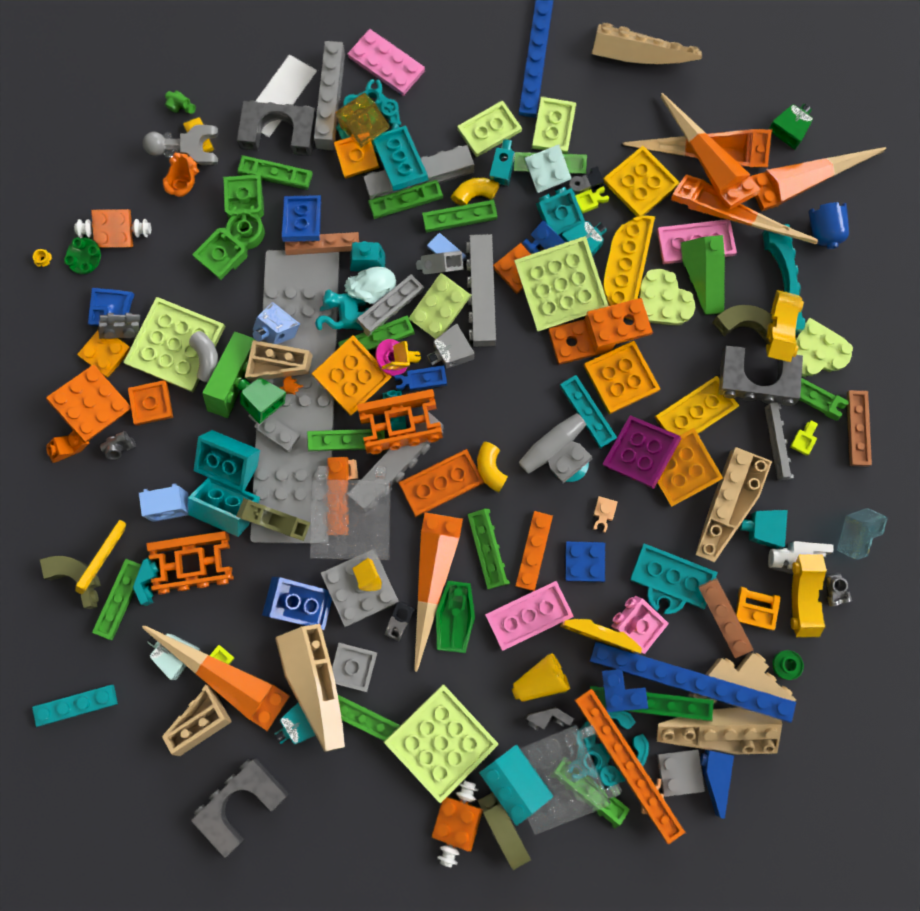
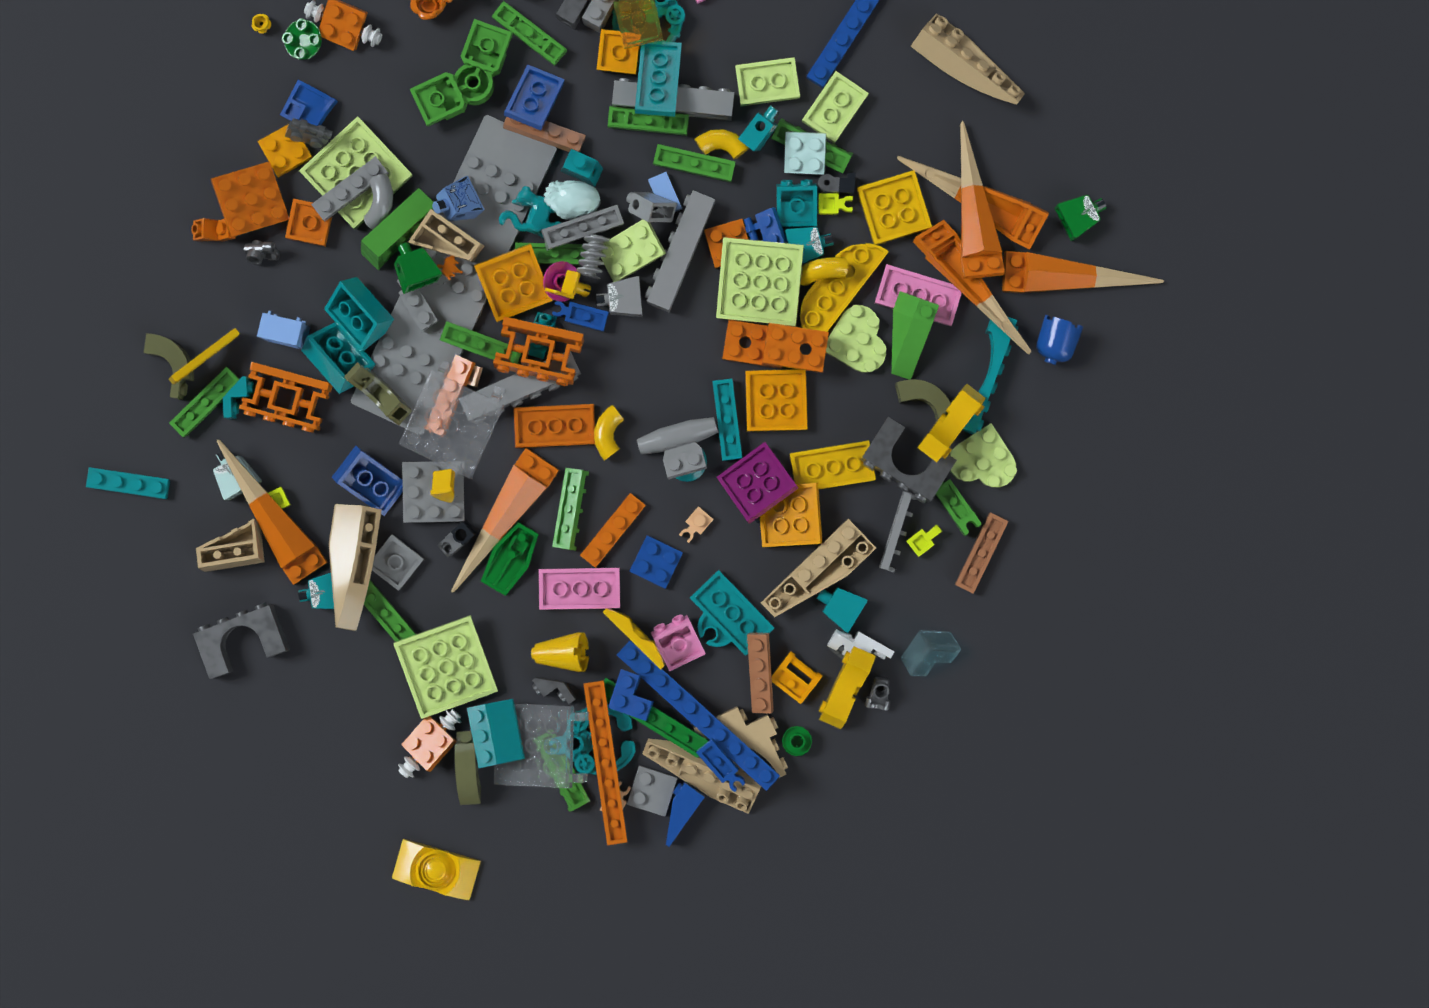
camera: 20 degrees right, 10 degrees up
(172, 360) = (348, 189): none -> light grey plate
(409, 324) = (592, 256): none -> light grey piece
(610, 250) = (823, 268): none -> yellow cylinder
(736, 716) = (720, 763): none -> blue plate

